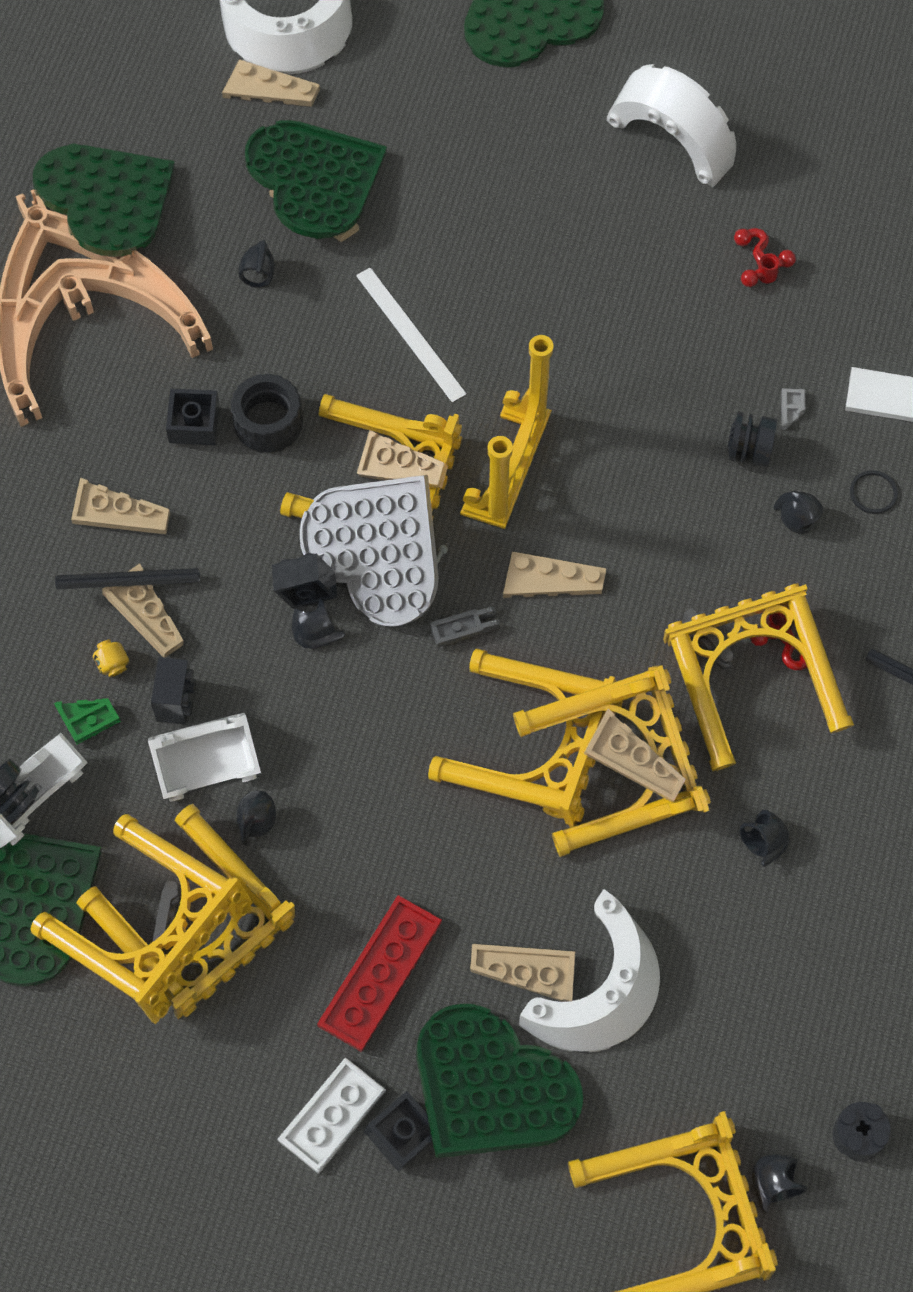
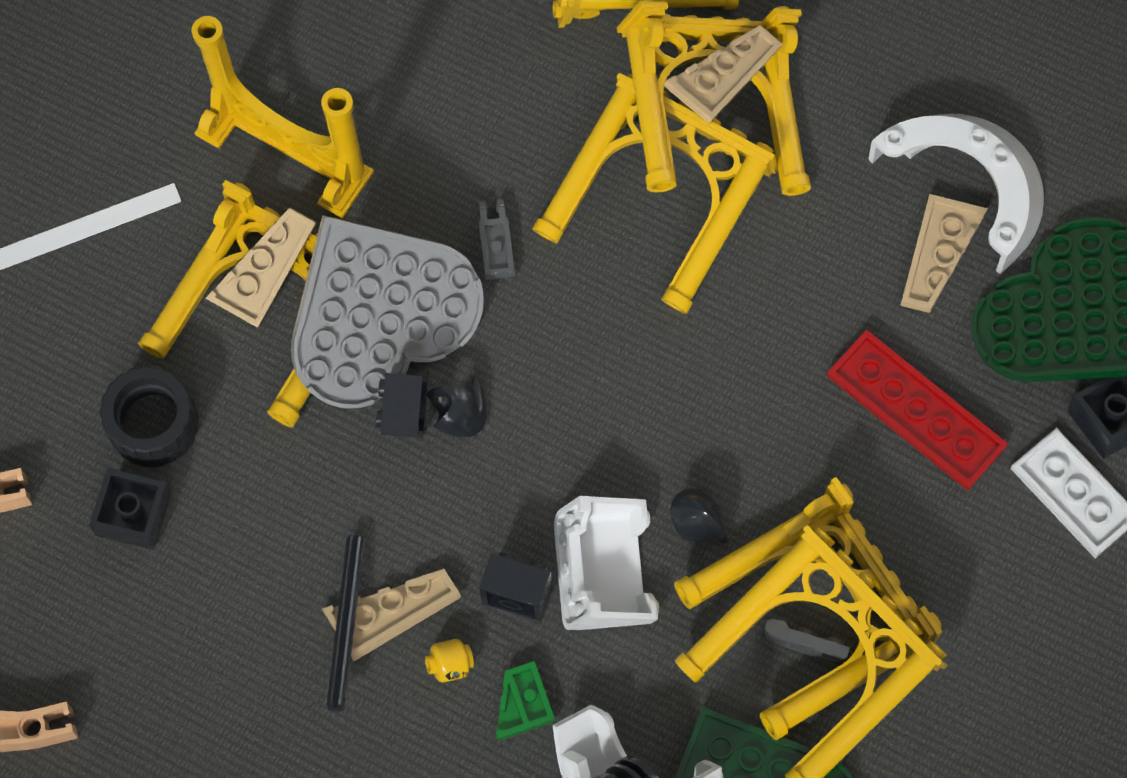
camera: 75 degrees left, 5 degrees up
(109, 509) = (235, 634): tan wing -> none
(541, 575) = (448, 140): tan wing -> none

